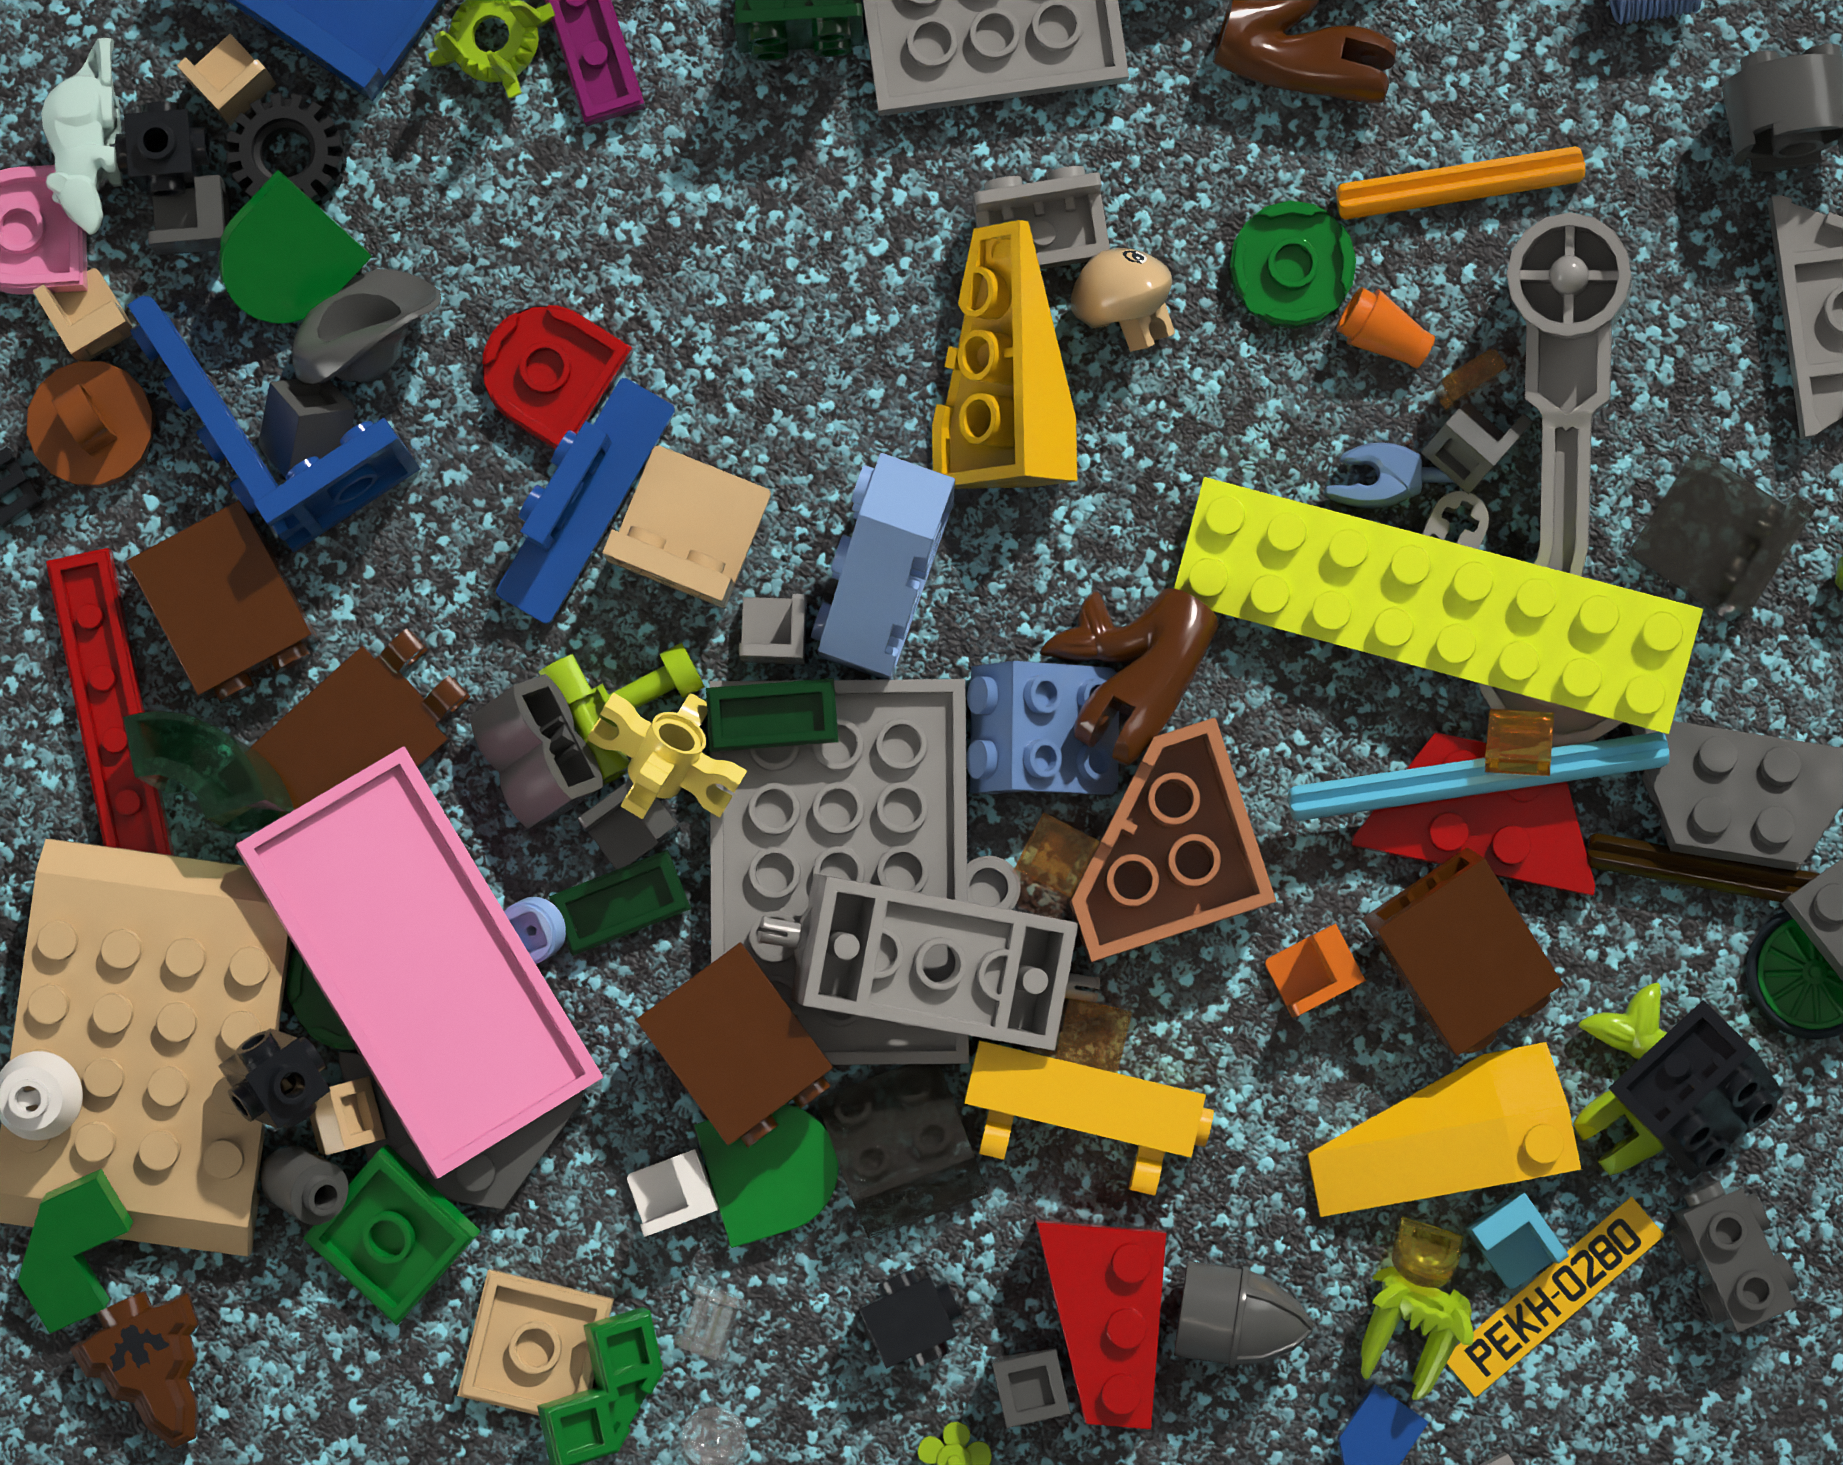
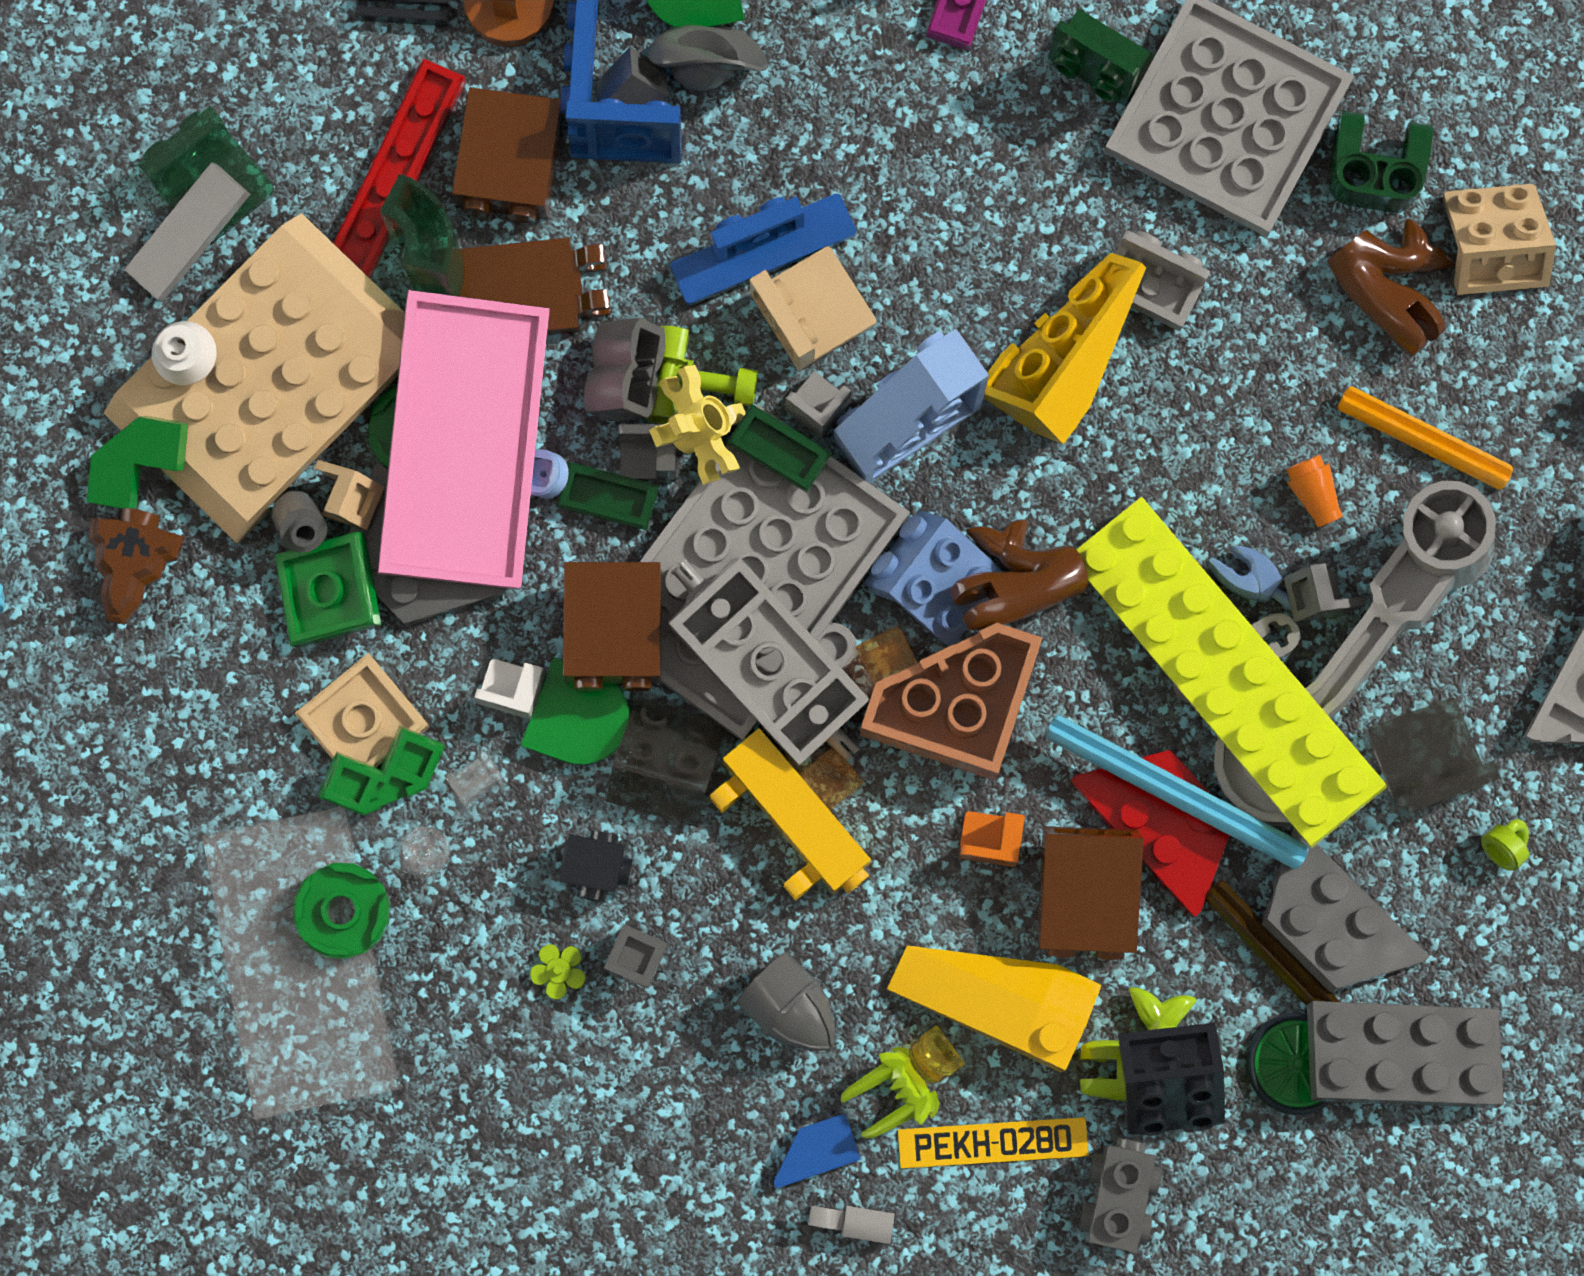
camera: 35 degrees right, 5 degrees down
(257, 1075) = (317, 430): black brick -> none
(550, 370) = (800, 158): red tile -> none
(1109, 1314) = (716, 948): red wedge -> none
(1125, 289) = (1177, 354): tan piece -> none
(1292, 264) = (1287, 413): green tile -> none
(1470, 378) = (1346, 555): clear orange tile -> none
(1515, 1239) = (994, 1089): medium azure panel -> none
(1519, 742) = (1216, 787): clear orange tile -> none

